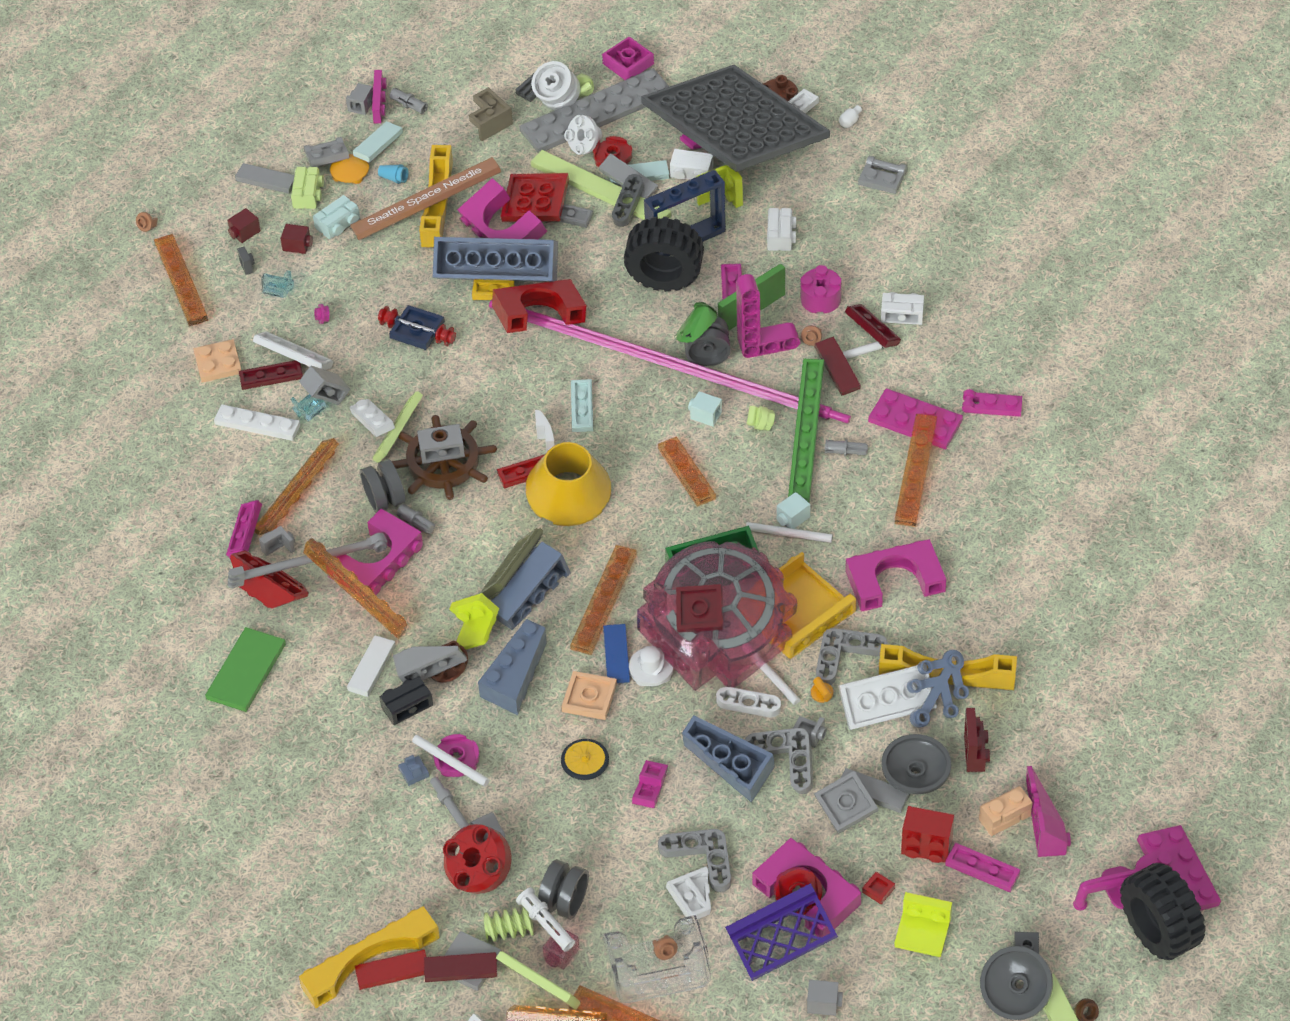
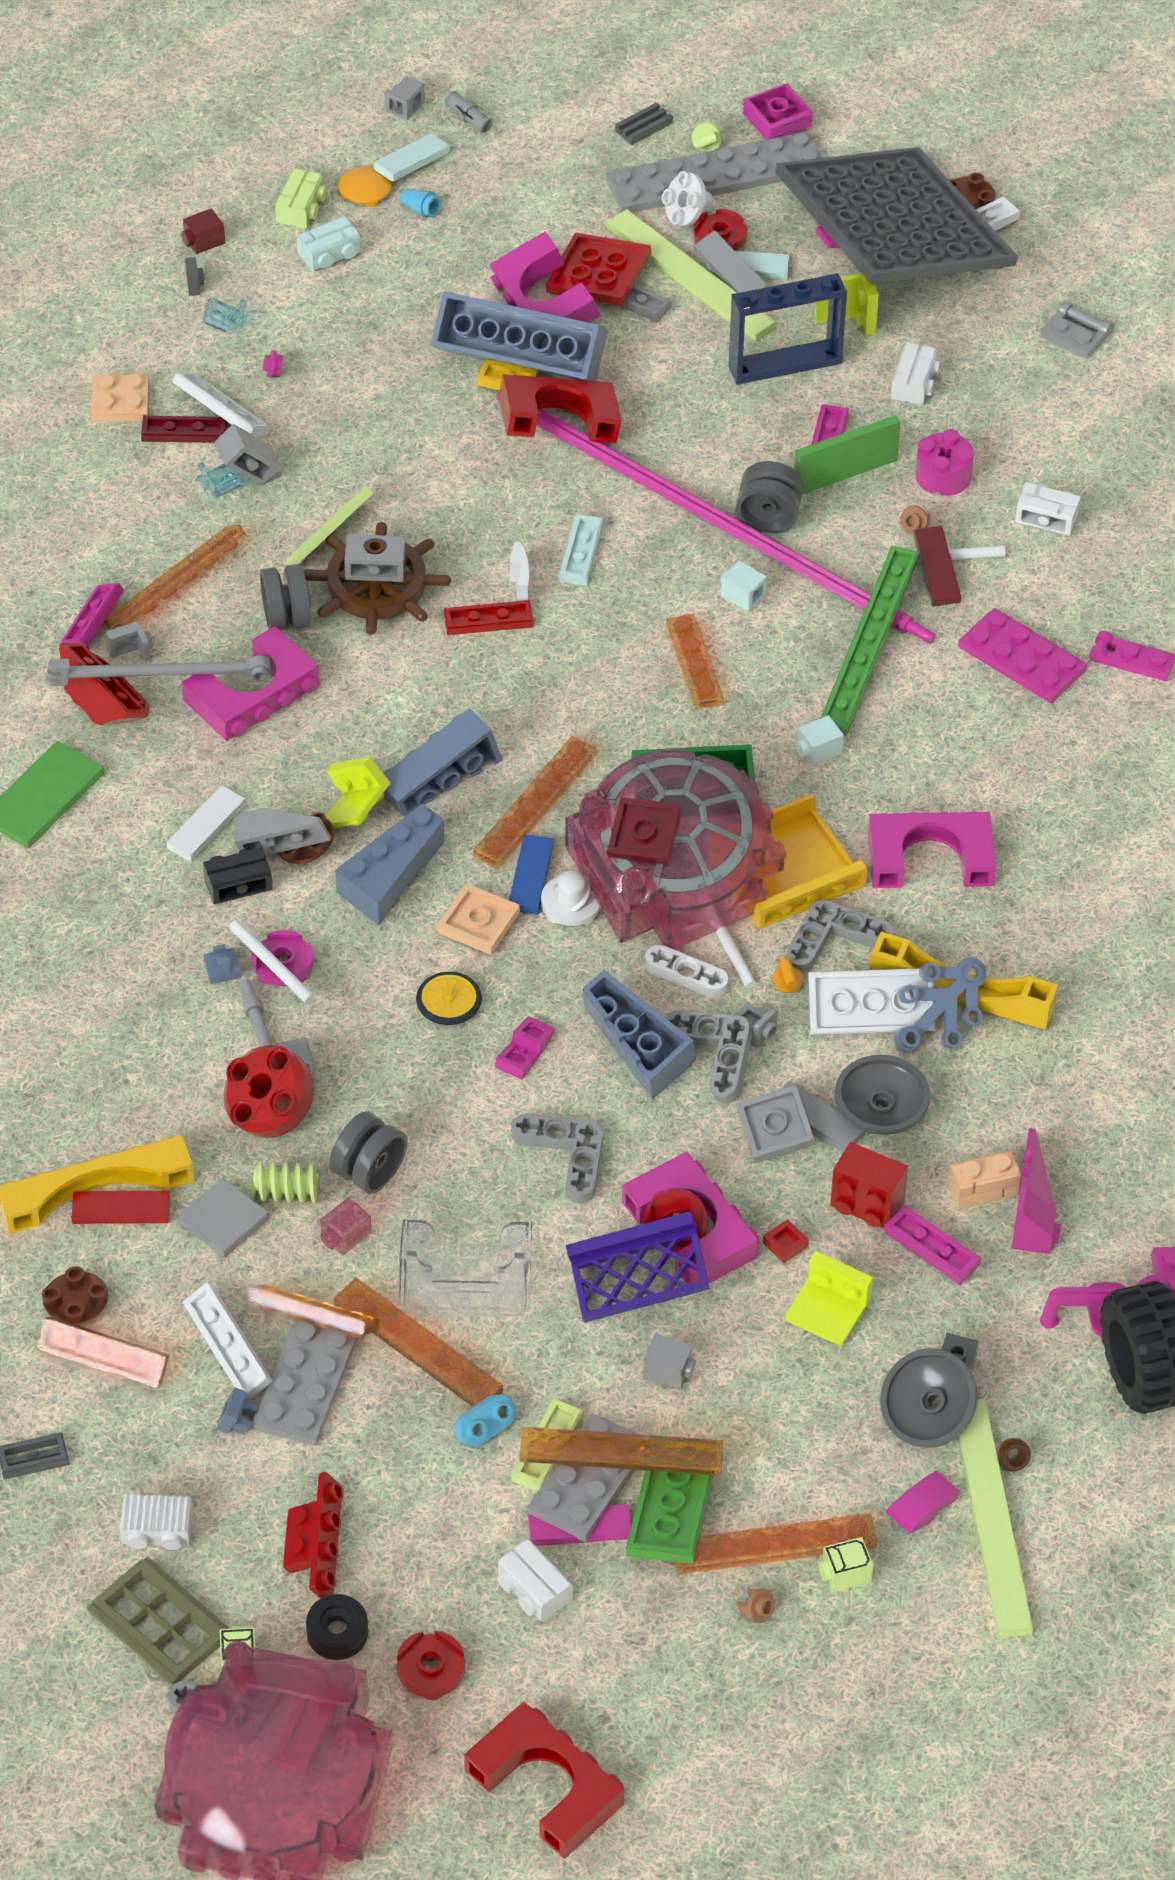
camera: 10 degrees right, 0 degrees up
(145, 221) = (77, 203): nougat plate -> none
(181, 280) = (101, 285): clear orange plate -> none
(257, 422) = (148, 486): white plate -> none
(265, 178) = (249, 176): light grey tile -> none
(296, 238) = (267, 261): dark red brick -> none
(326, 152) = (340, 158): light grey plate -> none
(361, 593) = (206, 712): clear orange plate -> none
(372, 417) = (298, 508): white plate -> none
(379, 96) = (430, 99): dark pink plate -> none
(415, 518) = (318, 649): light grey axle -> none
(416, 327) = (392, 405): dark blue plate -> none
(425, 198) = (452, 242): nougat tile -> none
(434, 216) = (481, 214): yellow arch -> none
(460, 967) = (208, 1221): dark red tile -> none
(493, 114) = (574, 151): dark tan panel -> none
(512, 563) = (425, 730): olive piece -> none
(538, 980) = (303, 1258): yellowish green tile -> none
(541, 909) = (328, 1174): white pin -> none
(555, 85) = (668, 128): white wheel -> none
(568, 500) = (525, 665): yellow cone -> none
(629, 208) = (720, 307): dark grey beam -> none
(665, 947) = (481, 1255): nougat plate -> none
(667, 237) = (756, 353): black tyre -> none
(690, 164) = (814, 261): white brick -> none
(692, 893) = (538, 1194): white wing -> none
(697, 322) = (761, 469): bright green piece -> none
(751, 338) = (844, 512): dark pink beam -> none
(760, 418) = (813, 612): yellowish green piece -> none
(789, 532) = (807, 767): white bar -> none
(845, 447) = (916, 673): light grey axle -> none
(850, 116) = (1055, 245): white cylinder -> none
(872, 325) = (1001, 523): dark red tile -> none
(915, 470) = (1000, 721): clear orange plate -> none
(974, 740) = (969, 1082): dark red plate -> none

